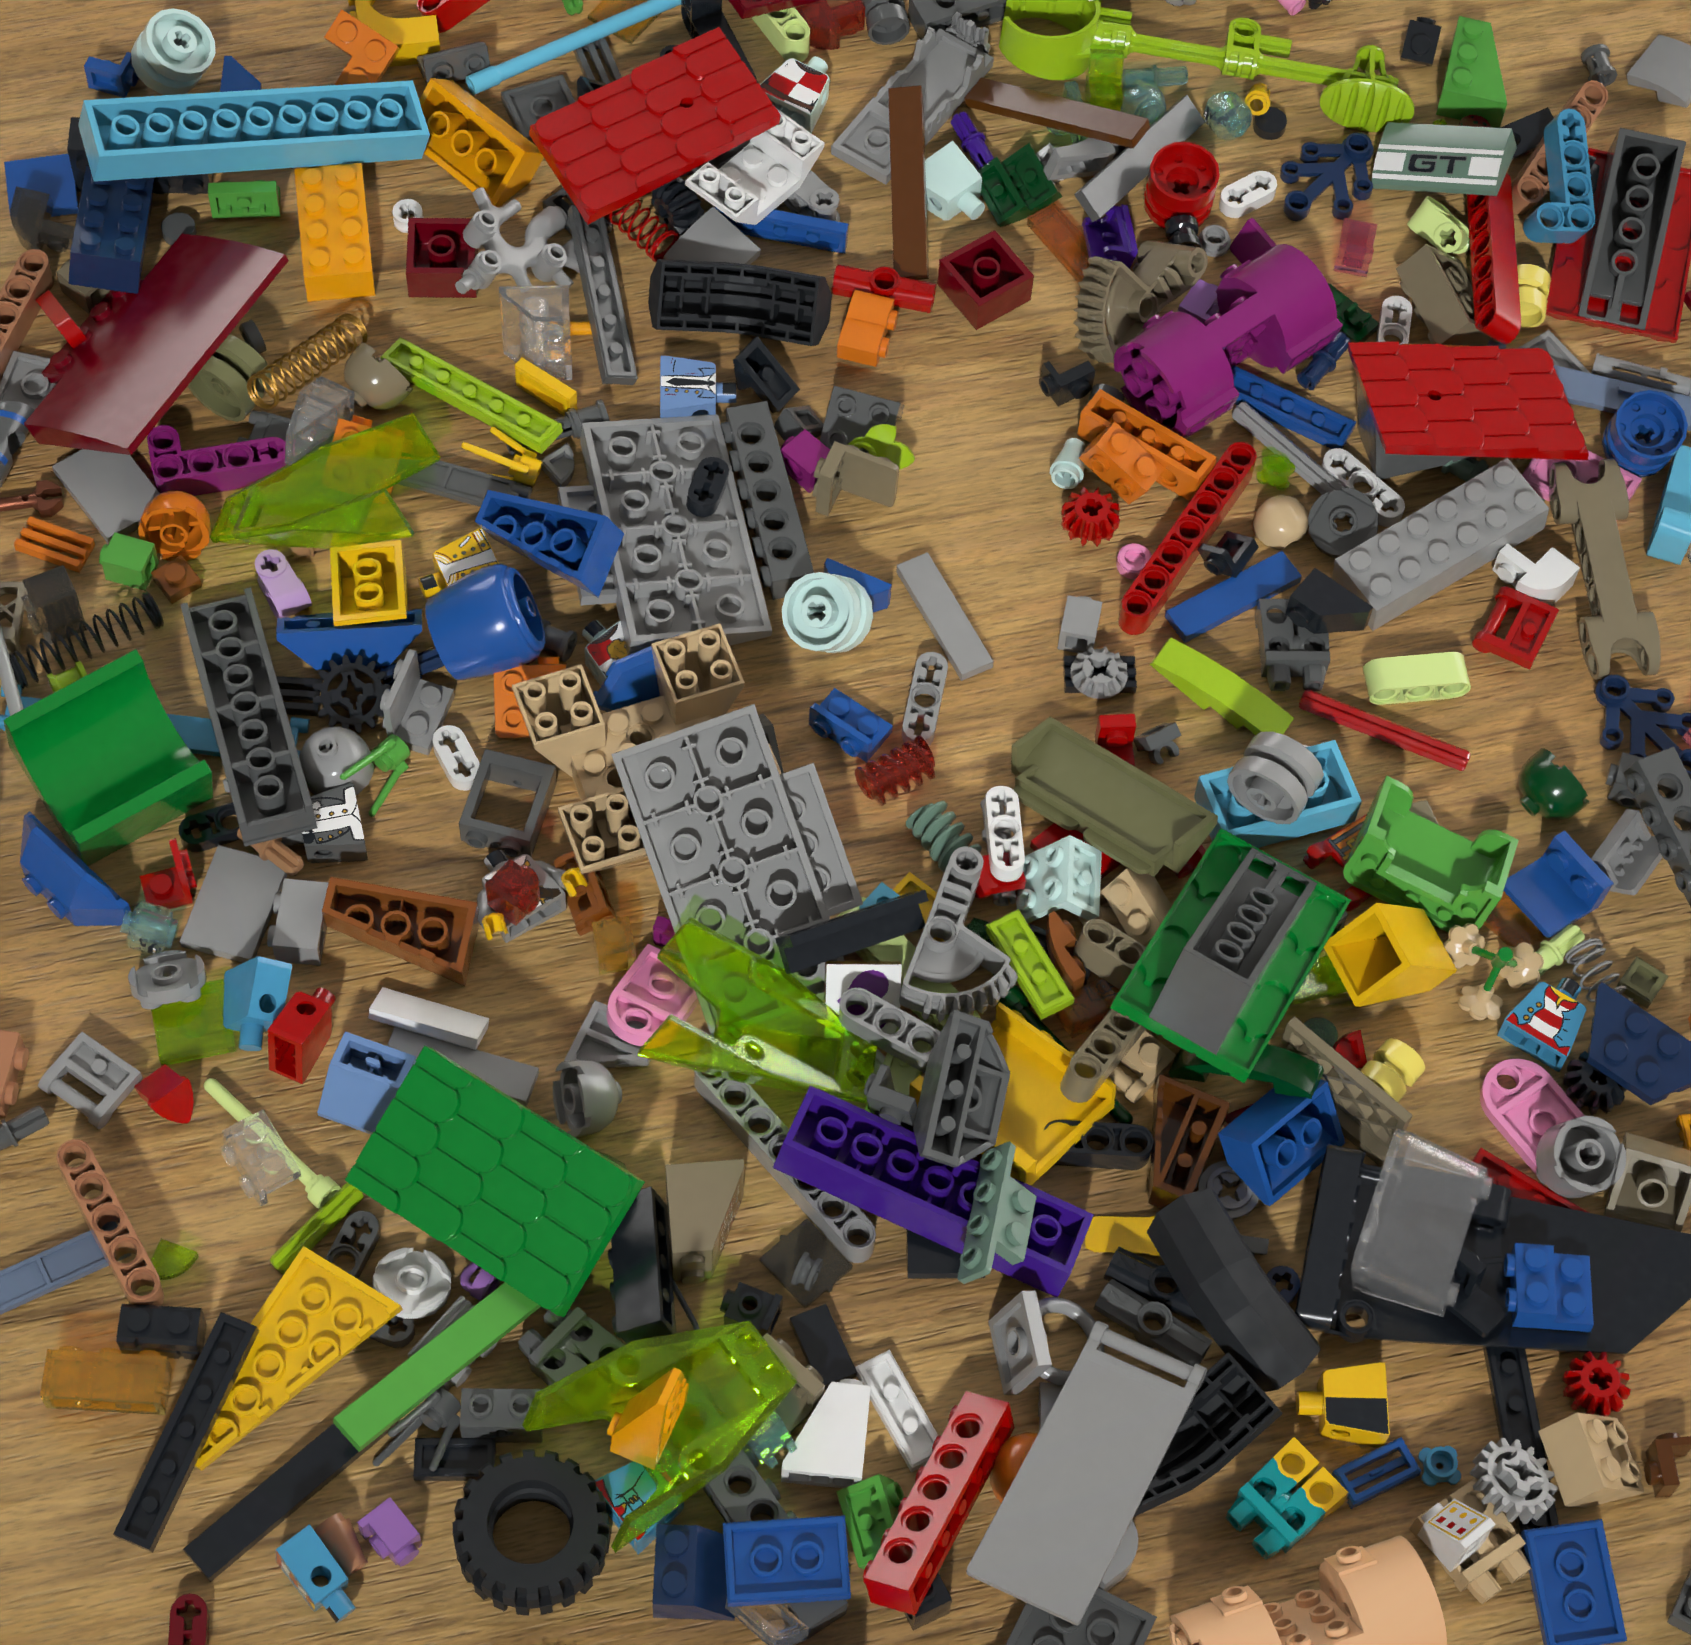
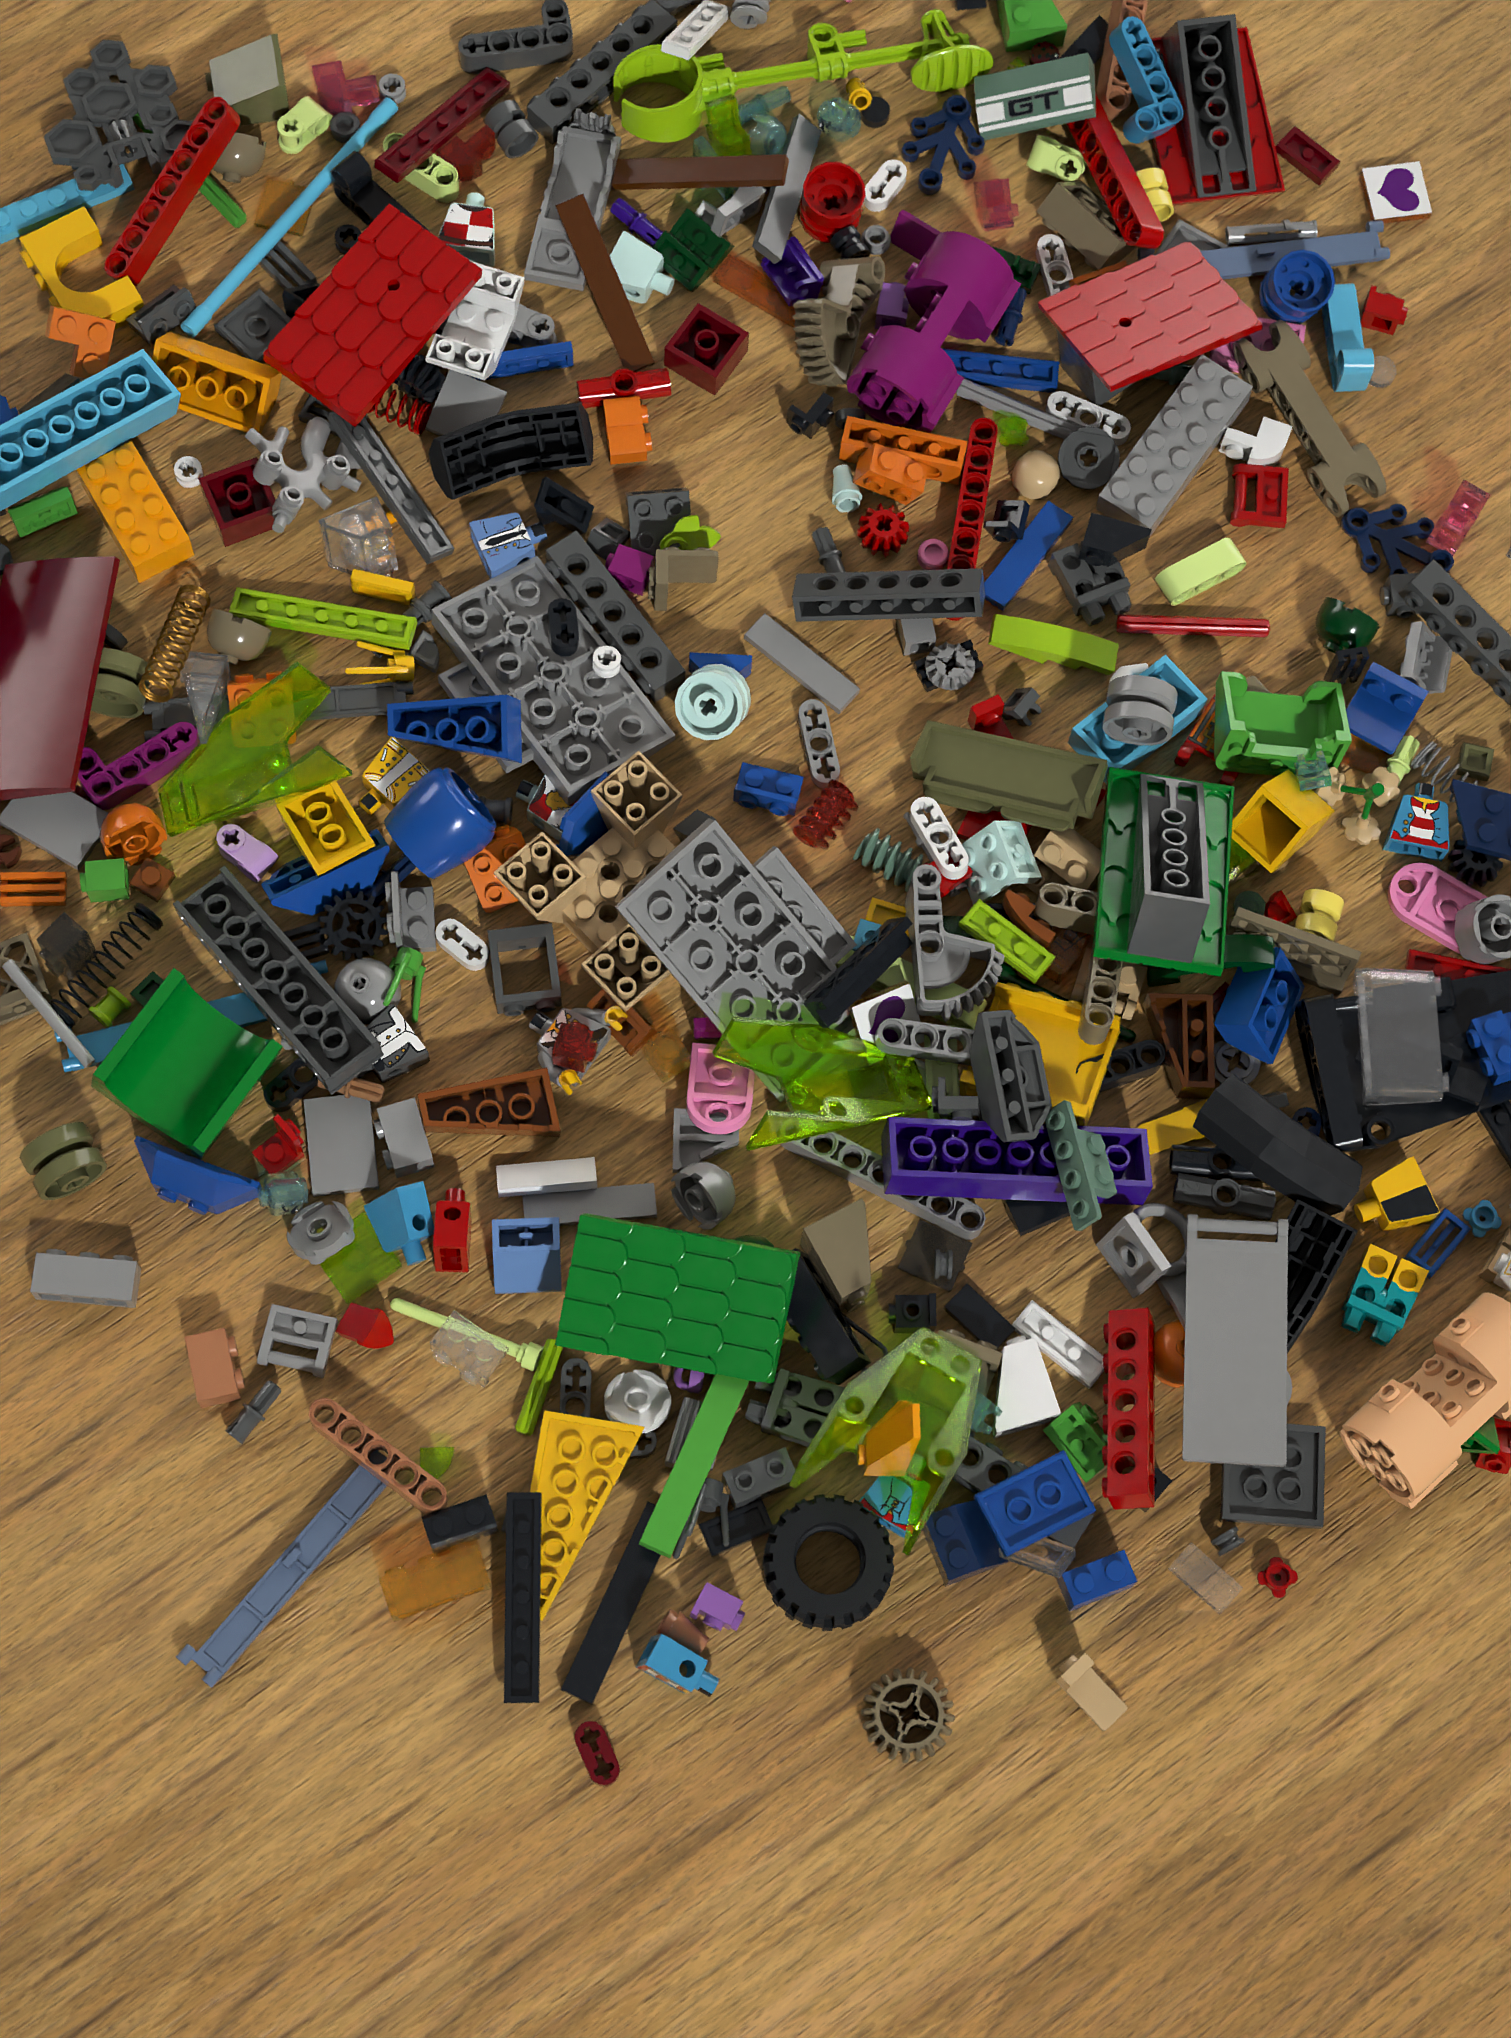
camera: 25 degrees left, 10 degrees up
(731, 527) = (610, 670): none -> white bush
(1022, 524) = (829, 555): none -> dark grey axle
(1063, 575) = (889, 595): none -> dark grey brick
(1446, 919) = (1312, 773): none -> clear light blue tile
(1548, 828) = (1351, 666): none -> black tile

